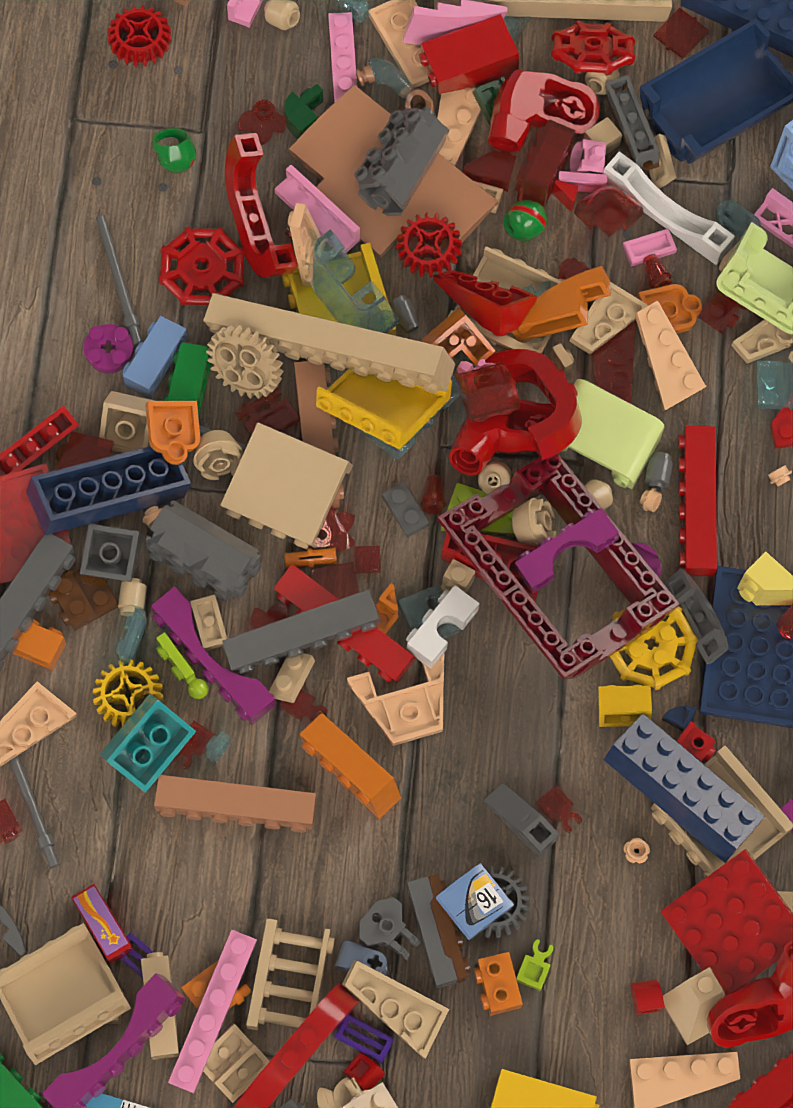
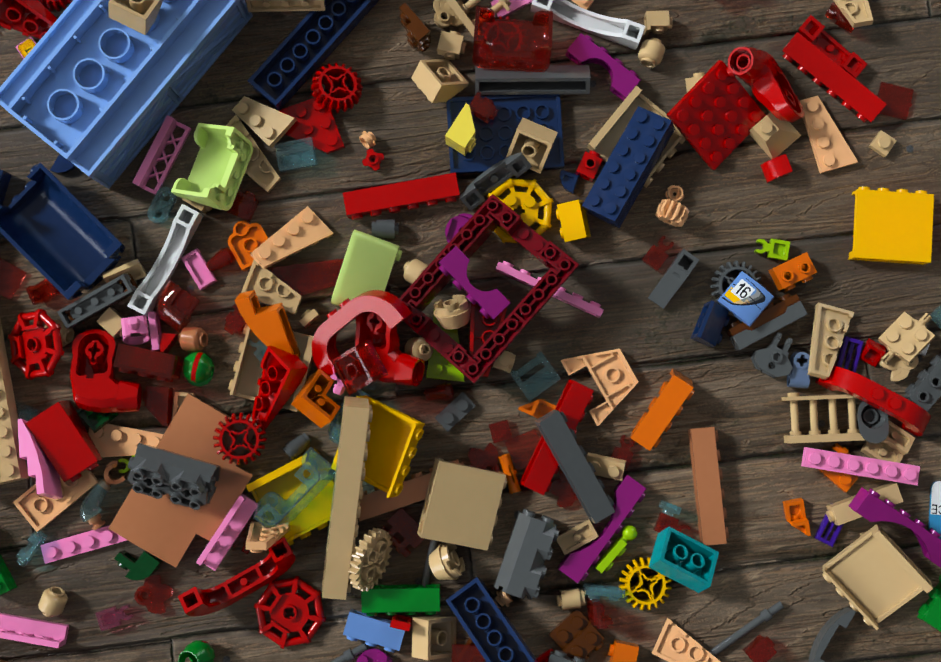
camera: 100 degrees left, 15 degrees up
(102, 923) = (816, 559): slope -> none
(106, 617) = (596, 614): none -> clear red bracket
(111, 553) = (543, 623): dark grey slope -> none
(157, 383) = (401, 622): none -> red tile
(166, 915) = (796, 516): none -> orange slope
(173, 428) = (438, 601): orange plate -> none
(247, 71) = (111, 617): none -> clear pink plate
(264, 1037) = (872, 423): none -> dark grey piece
(449, 851) = (710, 324): none -> dark blue slope
(454, 608) = (530, 359): white arch -> none
(534, 665) = (574, 300): none -> bright pink plate
(563, 221) = (193, 339): none -> nougat head
(611, 835) = (672, 212): none -> light nougat gear
(651, 500) = (408, 231): light nougat plate -> none
(653, 64) = (42, 292): none -> clear red bracket
(737, 672) = (534, 143): none -> tan slope
(752, 484) = (373, 164): none -> red plate

